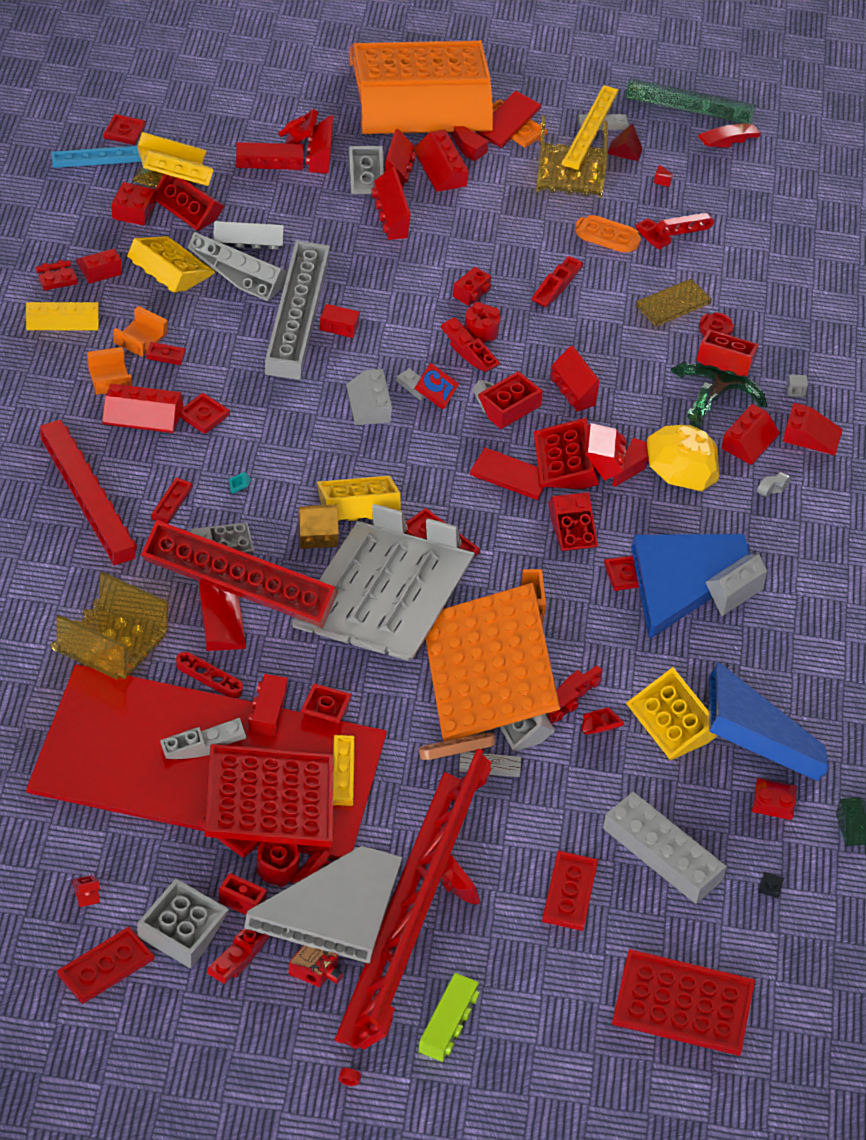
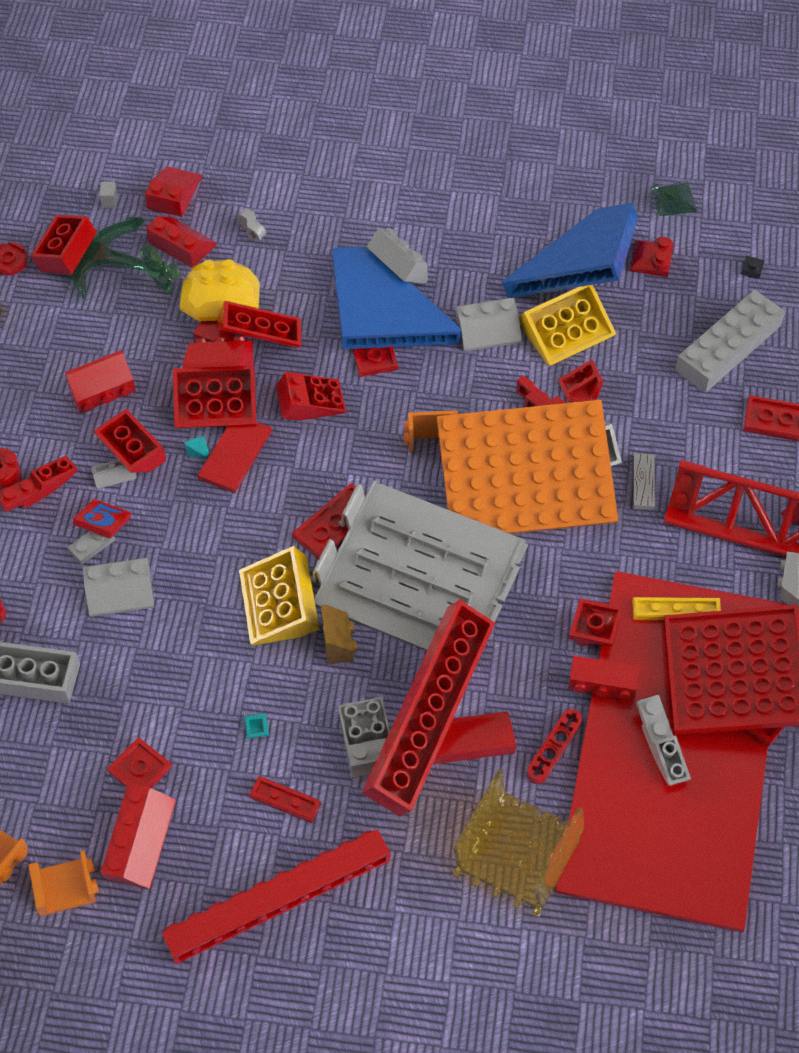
camera: 85 degrees left, 10 degrees up
(165, 353) = (31, 817): red plate -> none
(456, 746) = (627, 508): nougat beam -> none
(514, 446) = (197, 448): none -> teal slope
(638, 476) = (260, 324): none -> red slope
(668, 648) = (488, 324): none -> light grey slope

